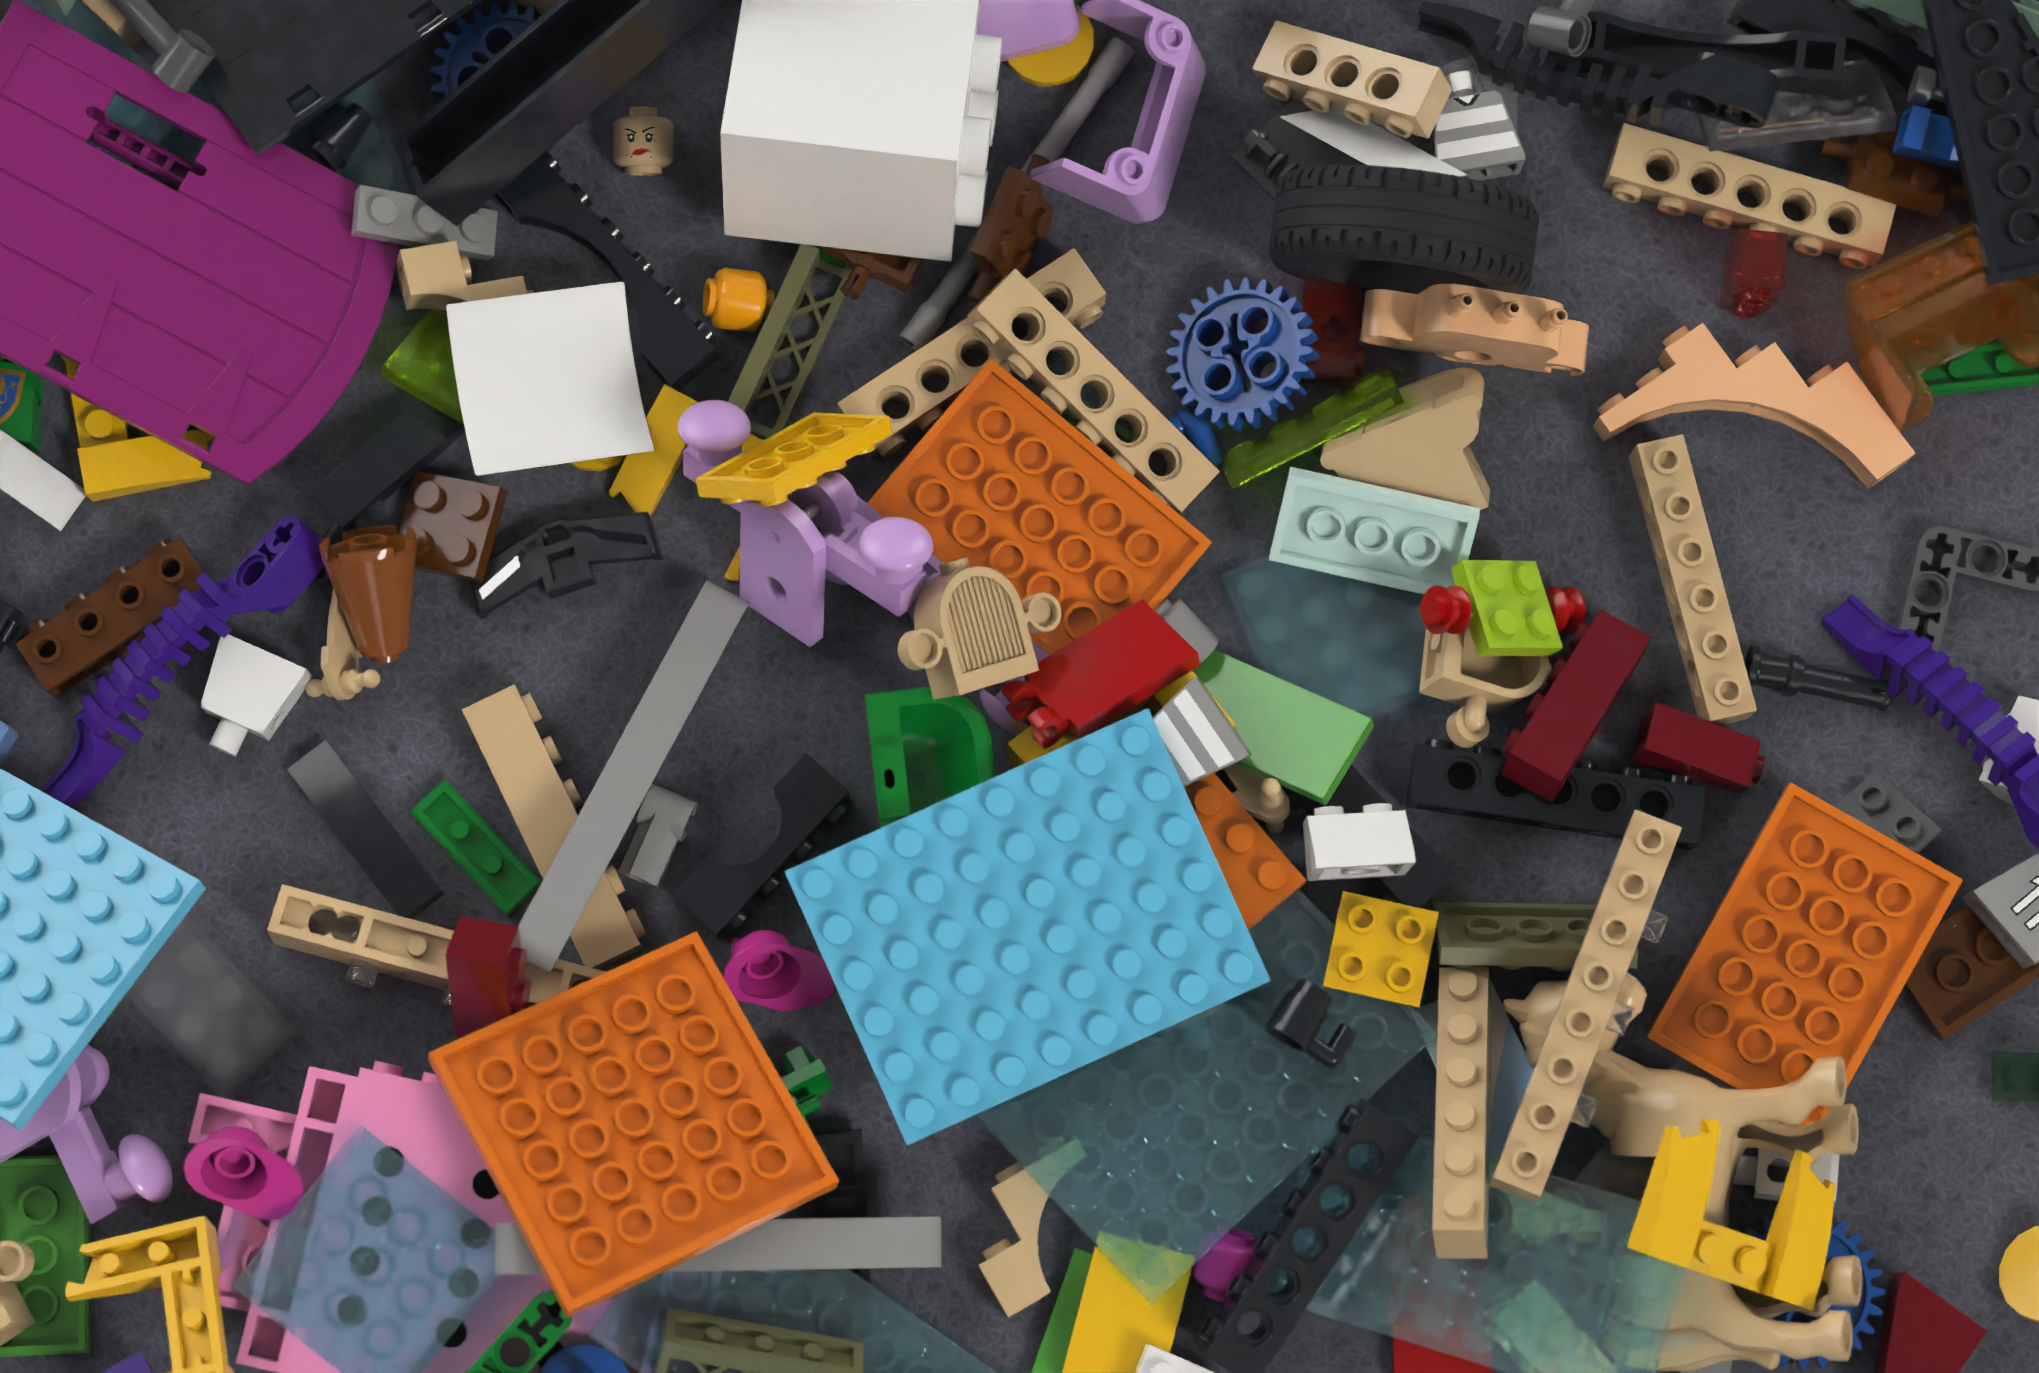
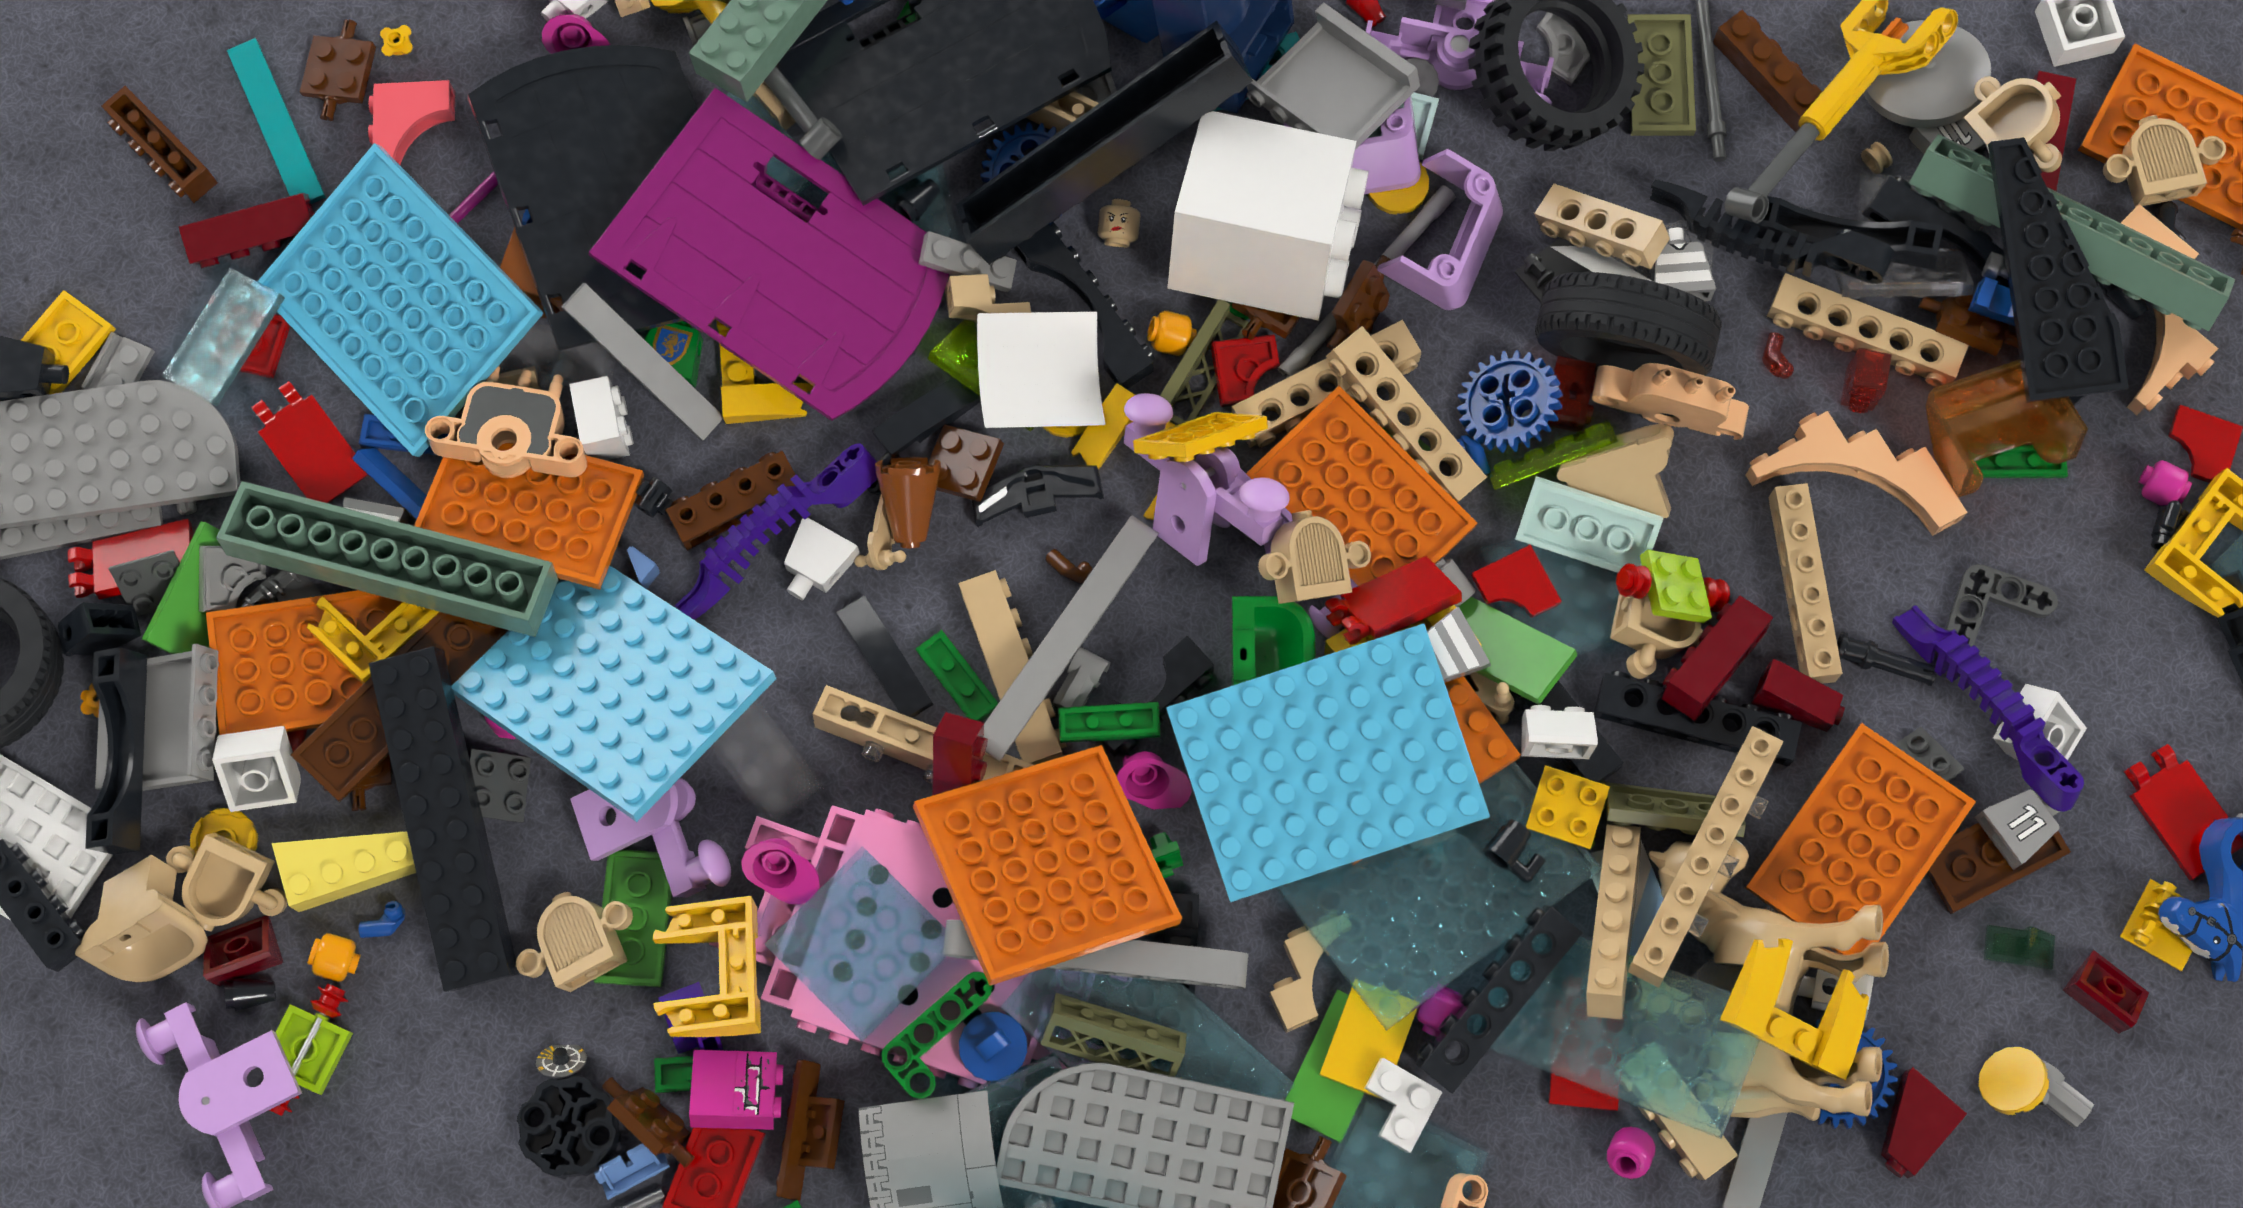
camera: 15 degrees right, 5 degrees down
(619, 668) = (1067, 568): none -> reddish brown arm
(704, 894) = (1109, 722): none -> green tile
(843, 338) = (1241, 364): none -> red tile
(1279, 620) = (1518, 580): none -> red tile
(1619, 250) = (1774, 359): none -> clear red arm

